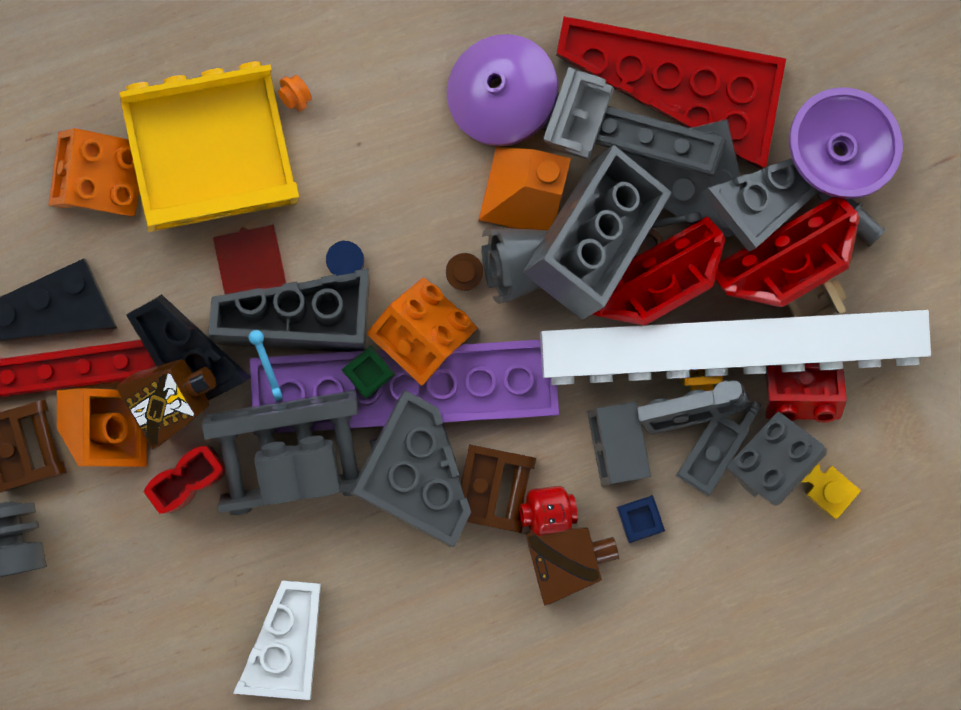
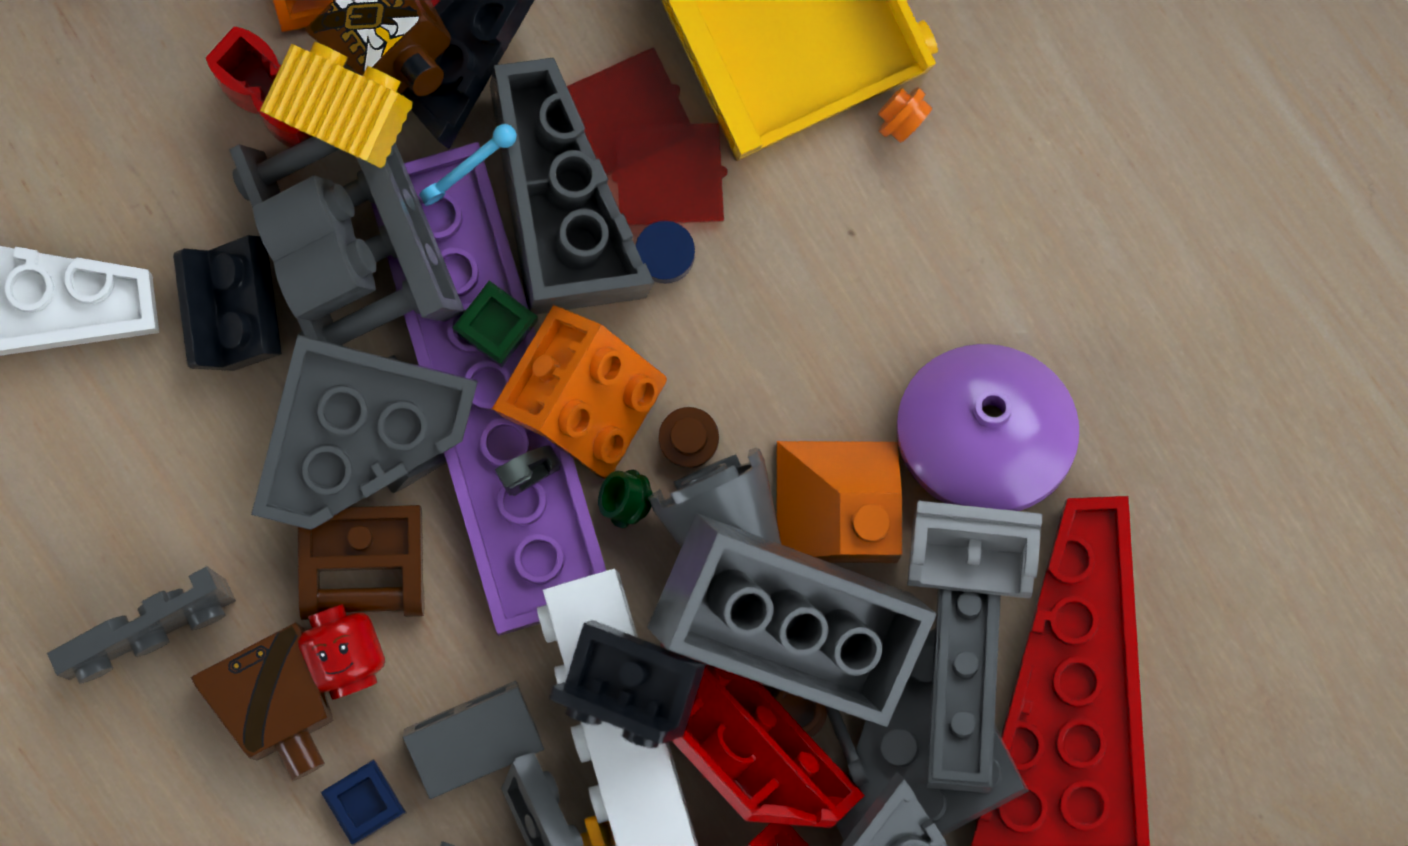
camera: 75 degrees right, 5 degrees down
(214, 435) = (337, 104): none -> yellow brick
(296, 245) = (669, 173): none -> clear red piece
(316, 535) = (227, 305): none -> black bracket
(465, 372) = (528, 469): none -> pearl dark grey tile
(493, 318) = (625, 497): none -> dark green plate
(507, 630) = (91, 652): none -> dark grey wing
(618, 336) = (629, 685): none -> black bracket

